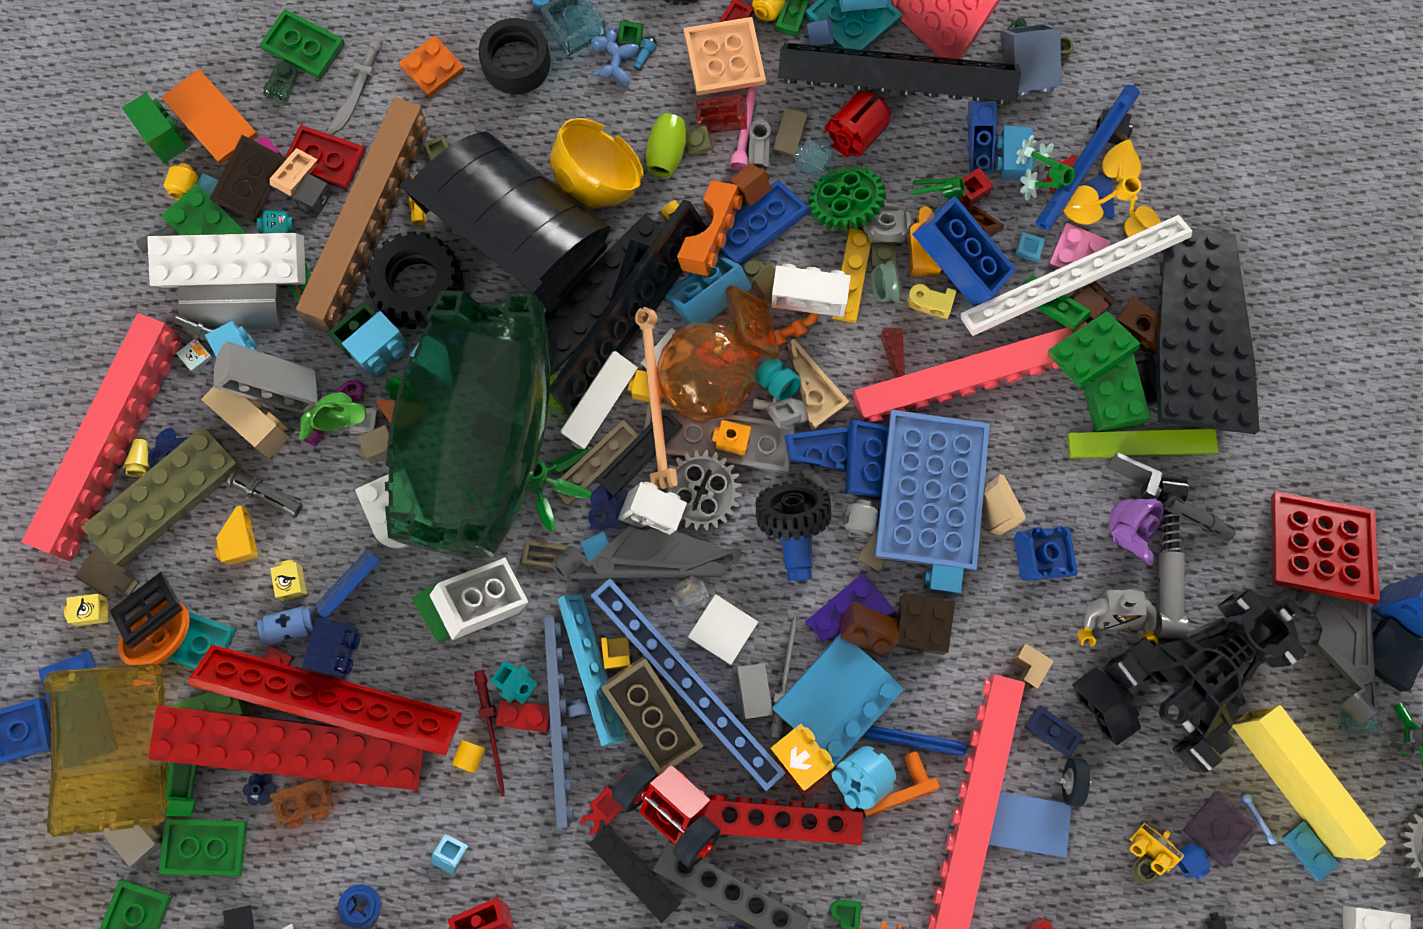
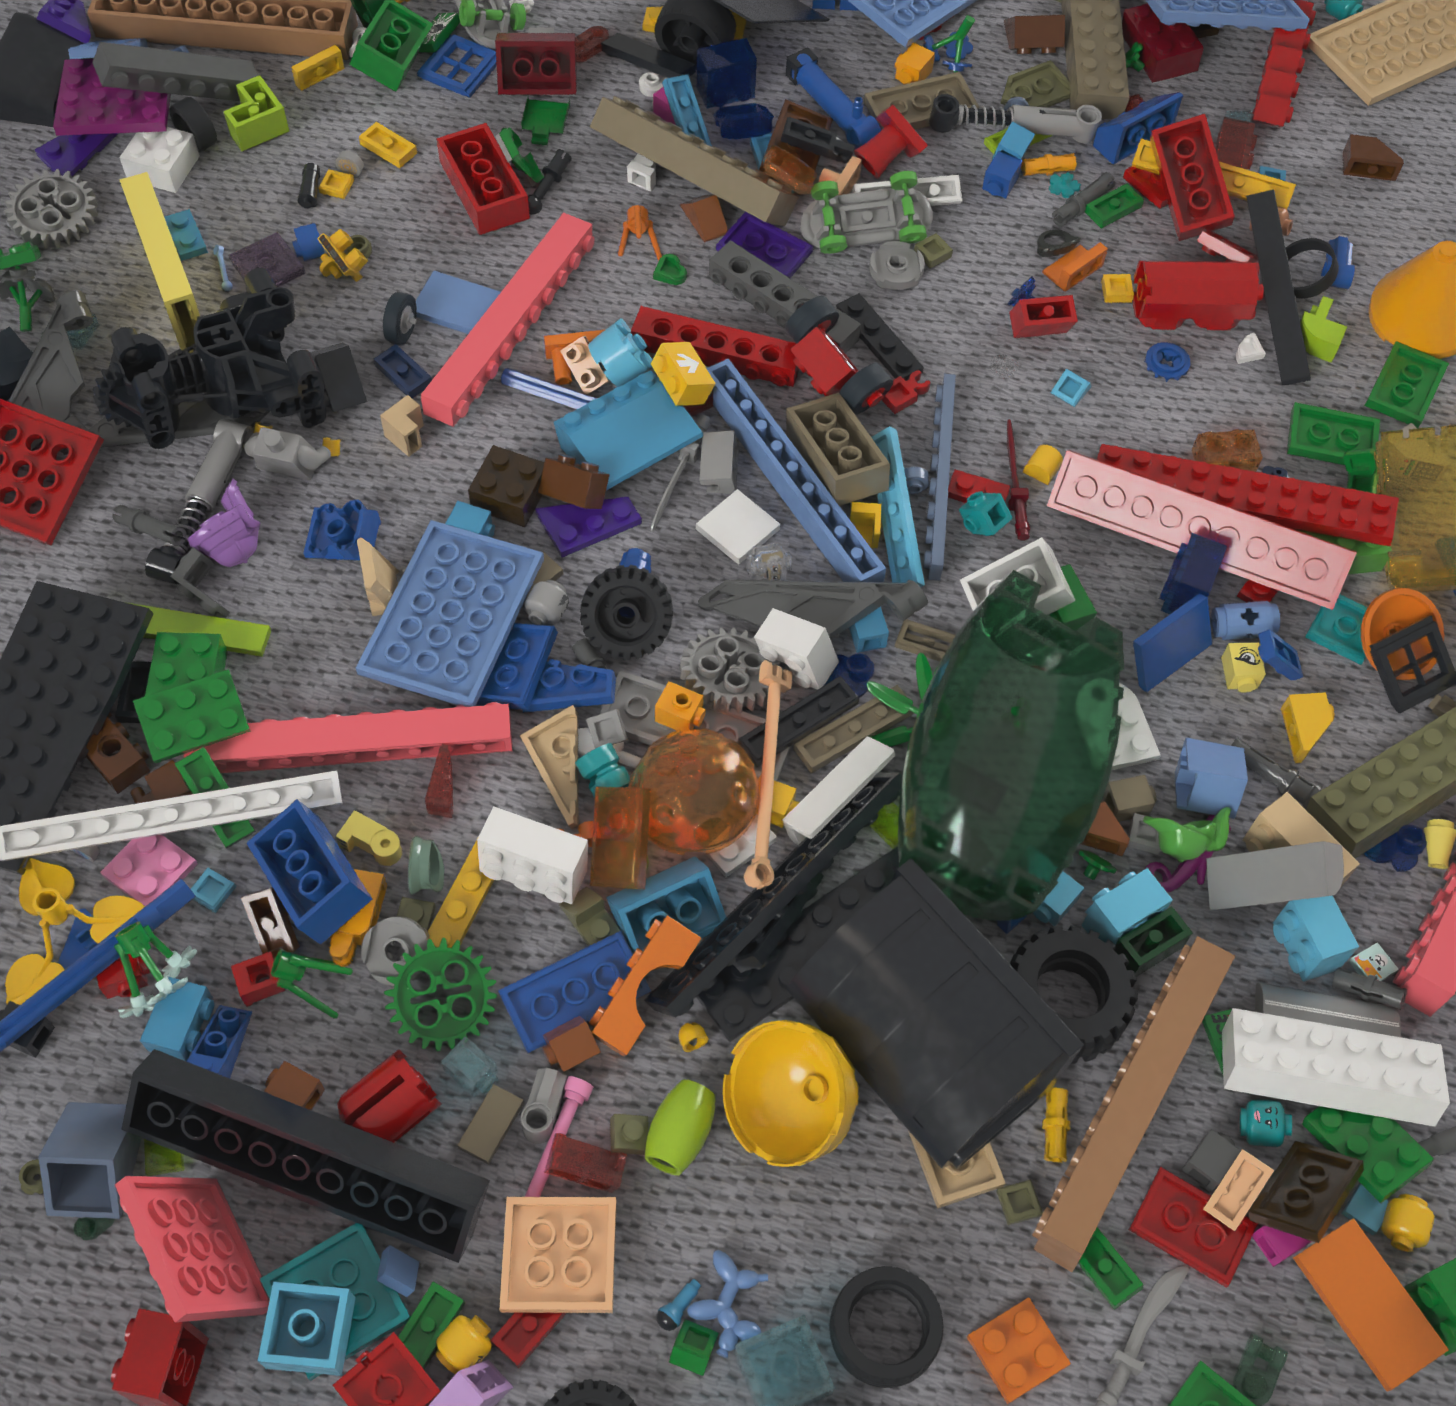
camera: 170 degrees left, 15 degrees down
(257, 591) = (1279, 655): none -> blue plate
(314, 466) = (1210, 777): none -> medium blue piece
(372, 112) = (1109, 1271): none -> green plate
(903, 766) = (583, 366): none -> light nougat hips
(923, 124) = (294, 1086): none -> dark orange brick

